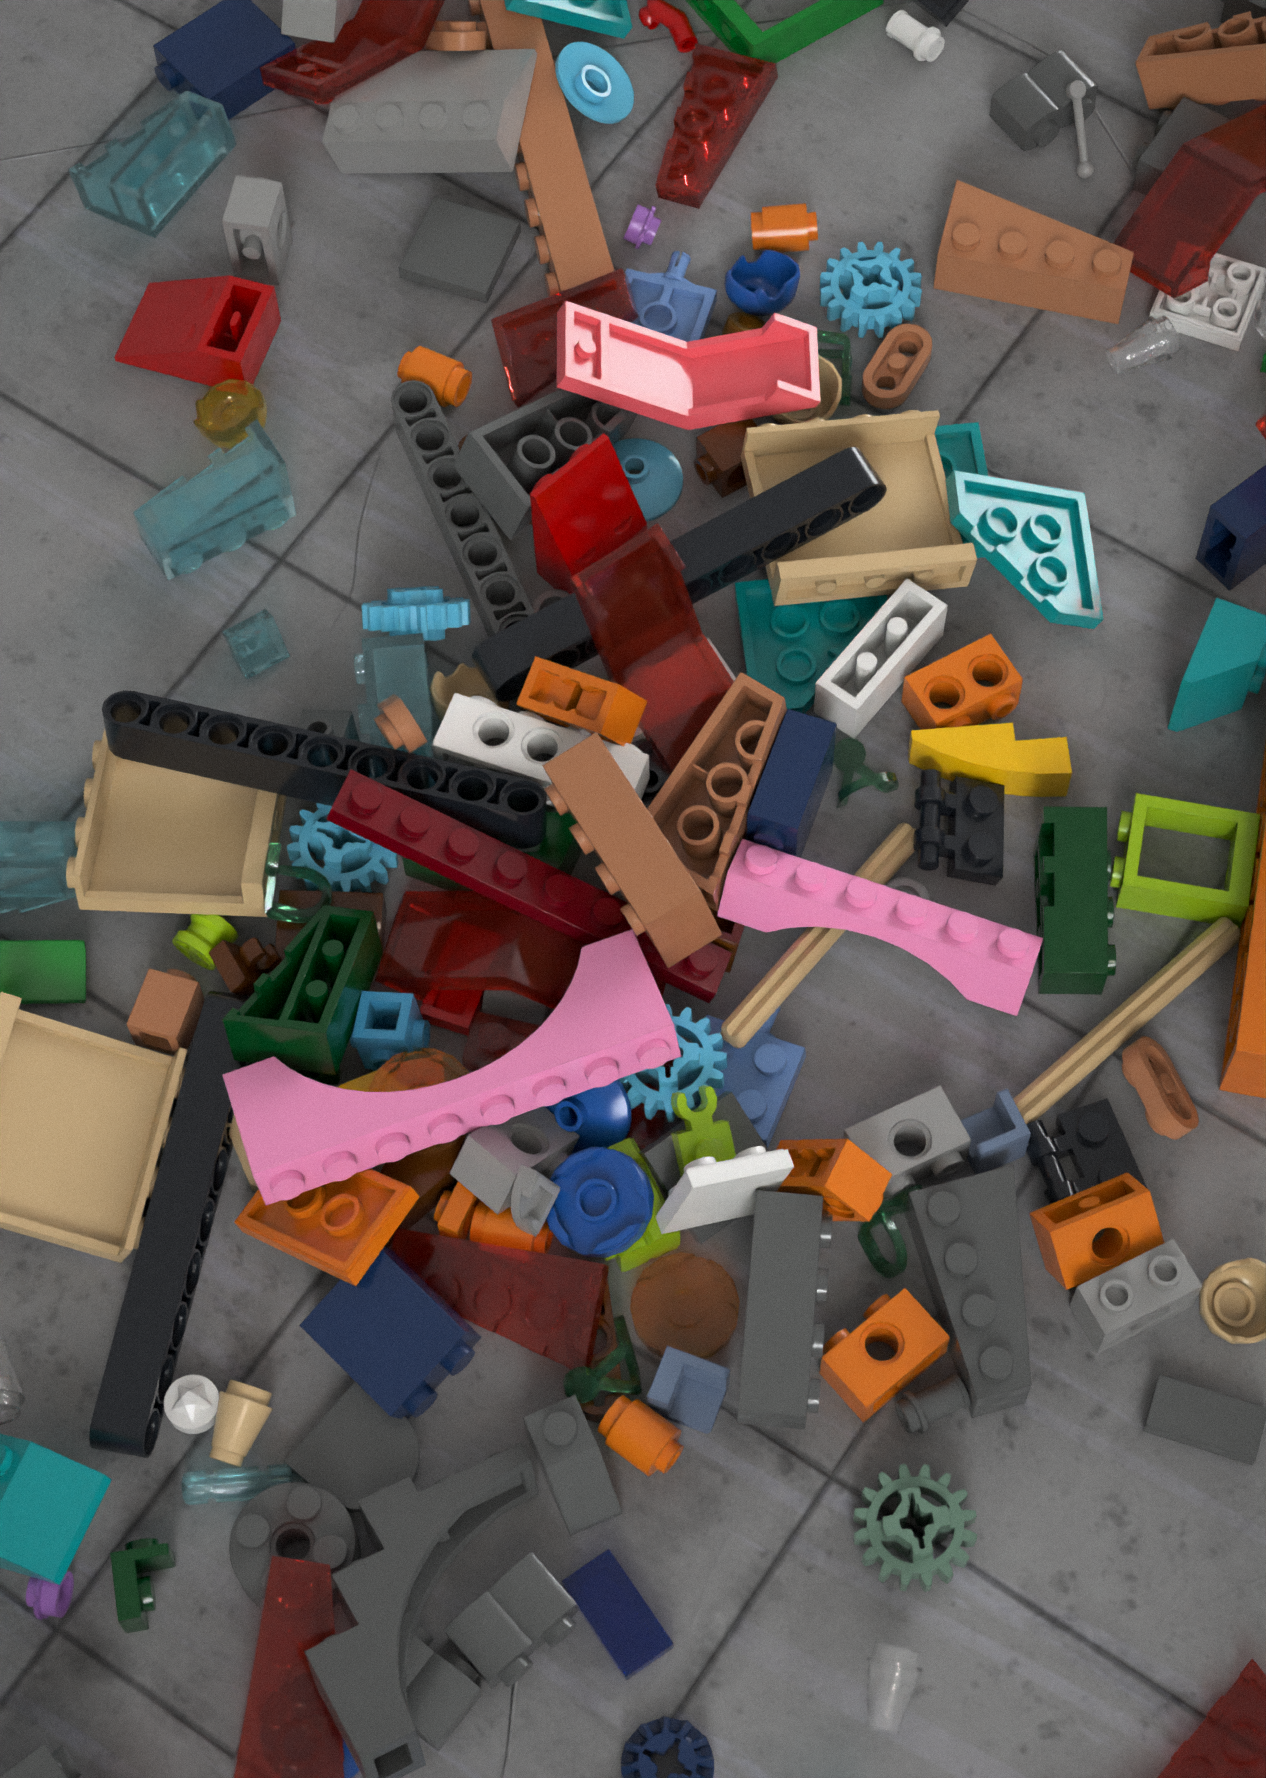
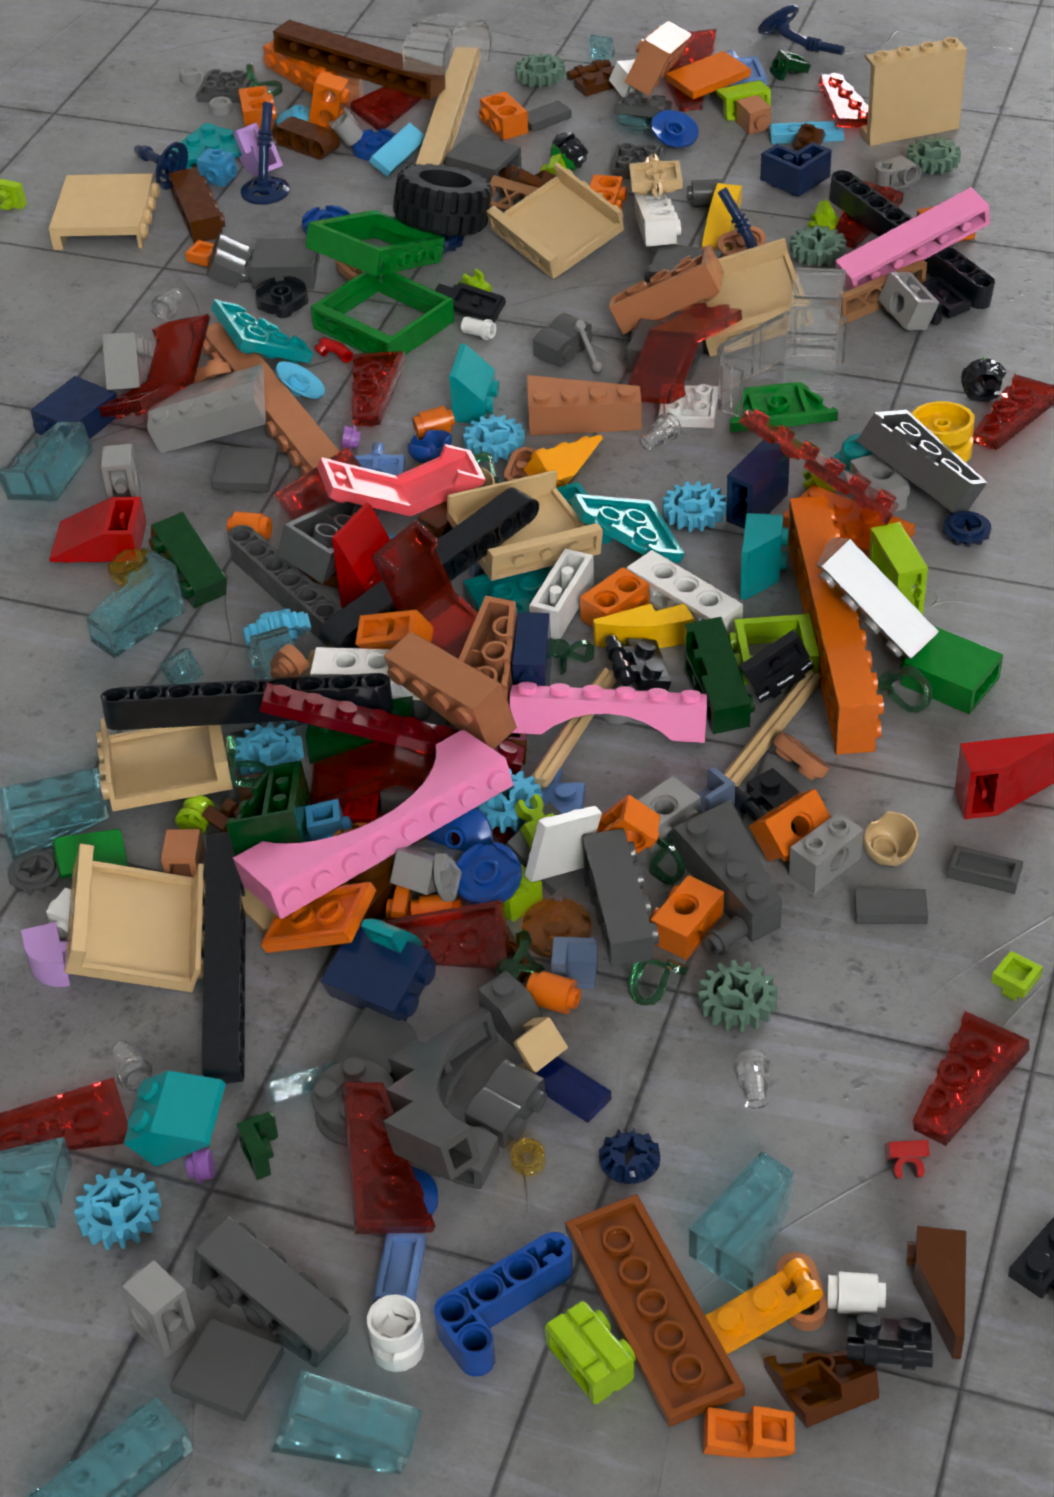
camera: 15 degrees left, 20 degrees down
(191, 1404) = (262, 1048): white tile -> none
(238, 1421) = (296, 1044): tan cone -> none
(316, 430) = (197, 570): none -> dark green wedge
(419, 1287) = (388, 935): none -> teal slope
(507, 1707) = (528, 1146): none -> clear yellow bush
(589, 1540) = (539, 1043): none -> tan panel
(837, 1439) = (638, 968): none -> clear green piece
(863, 176) = (472, 386): none -> teal slope
(964, 381) = (563, 458): none -> light orange slope
(1103, 776) = (674, 586): none -> white brick
(1146, 527) = (694, 506): none -> medium azure gear
(1171, 915) = (777, 666): none -> black plate

